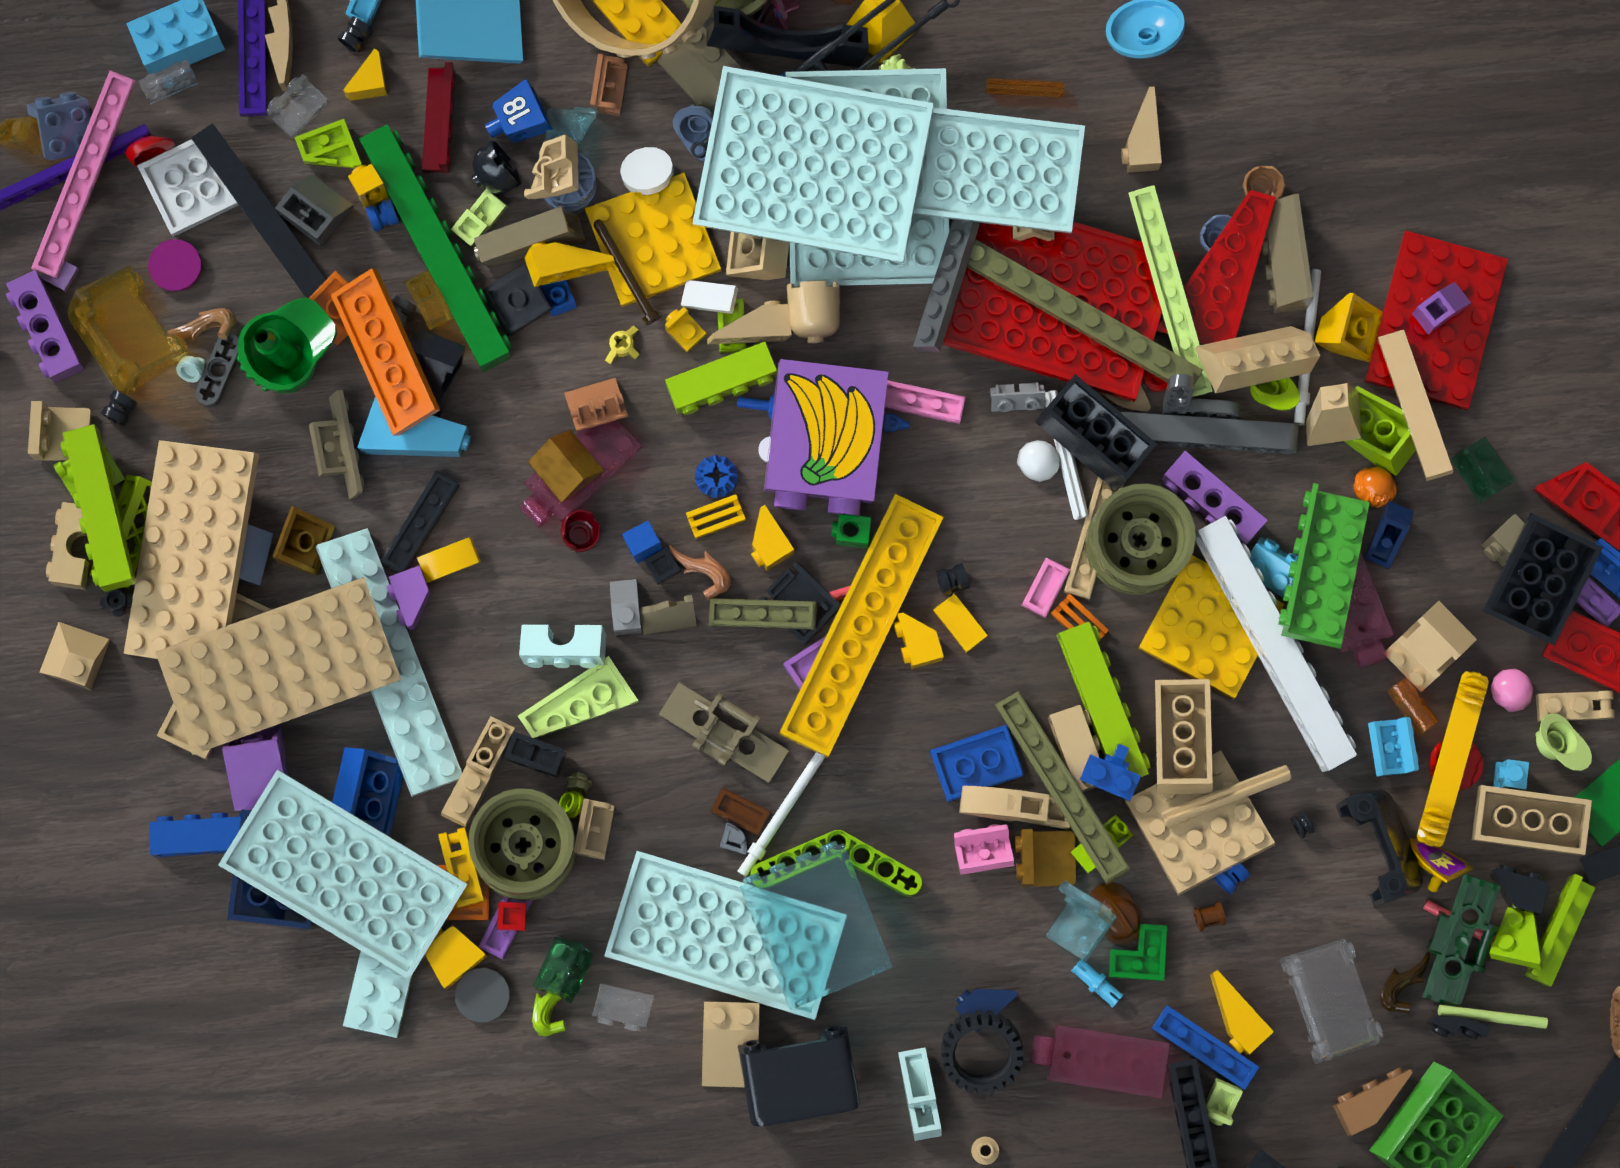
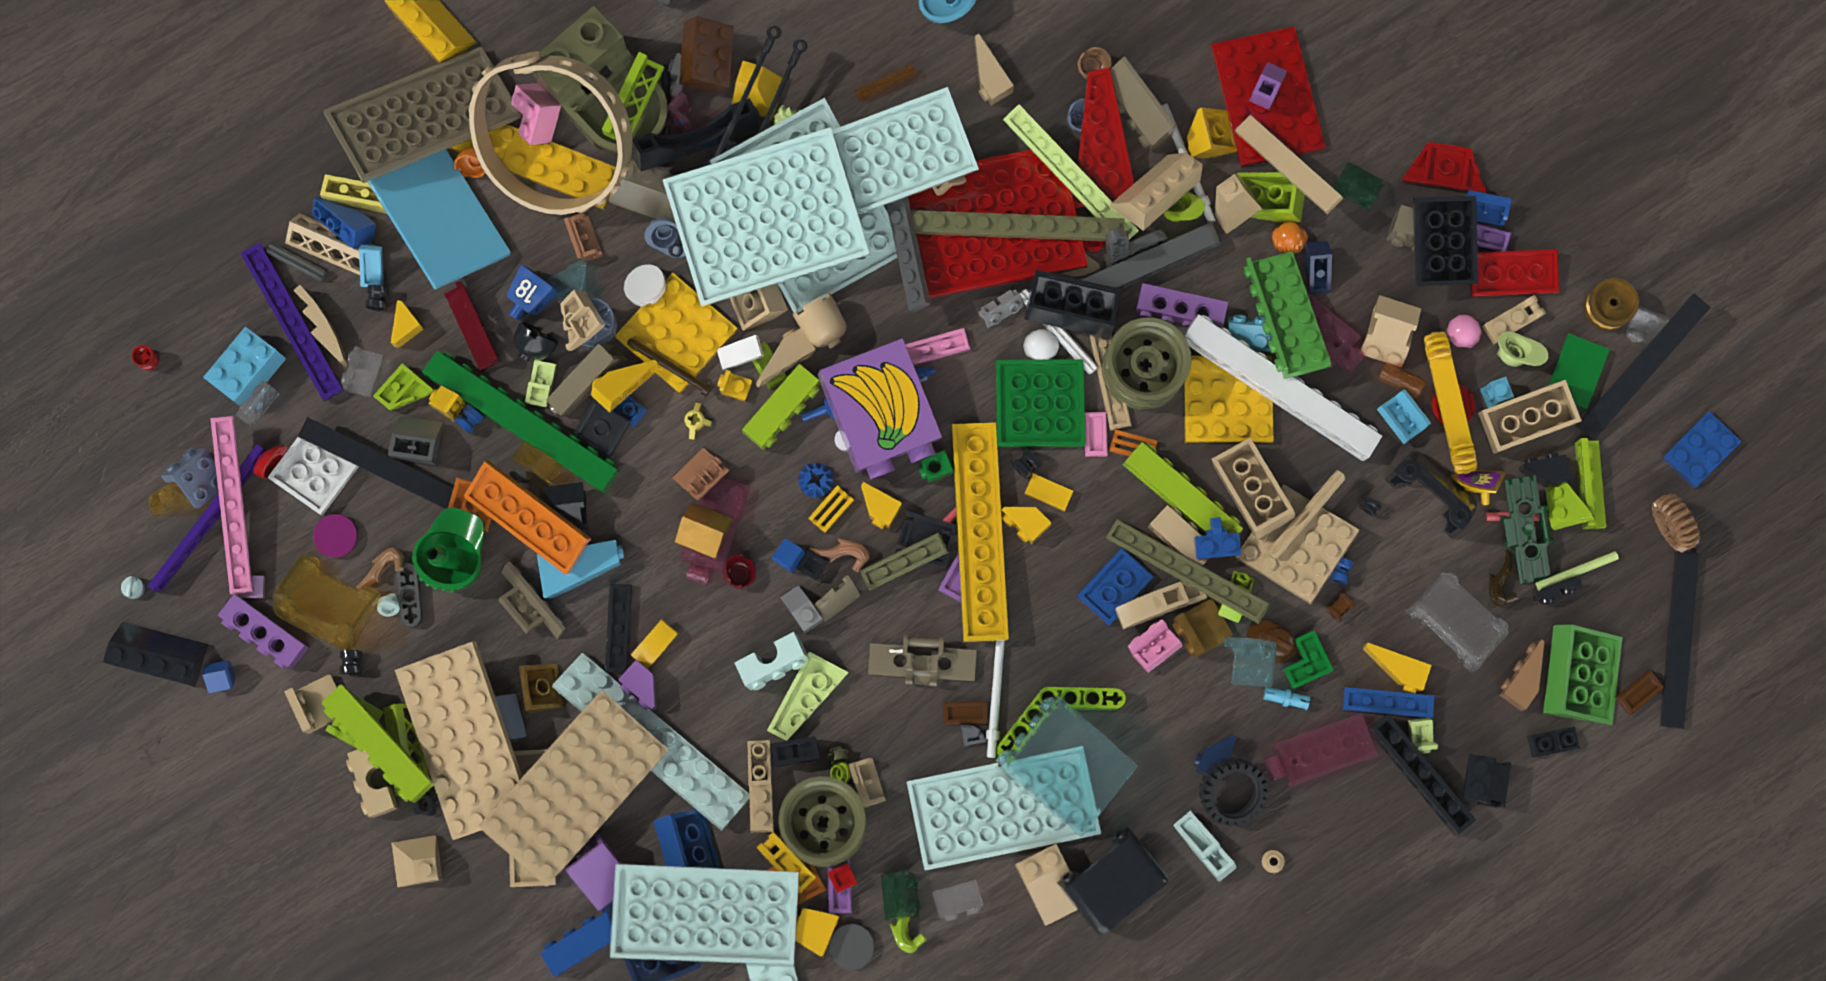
camera: 25 degrees left, 0 degrees up
(1003, 522) = (1040, 403): none -> green plate

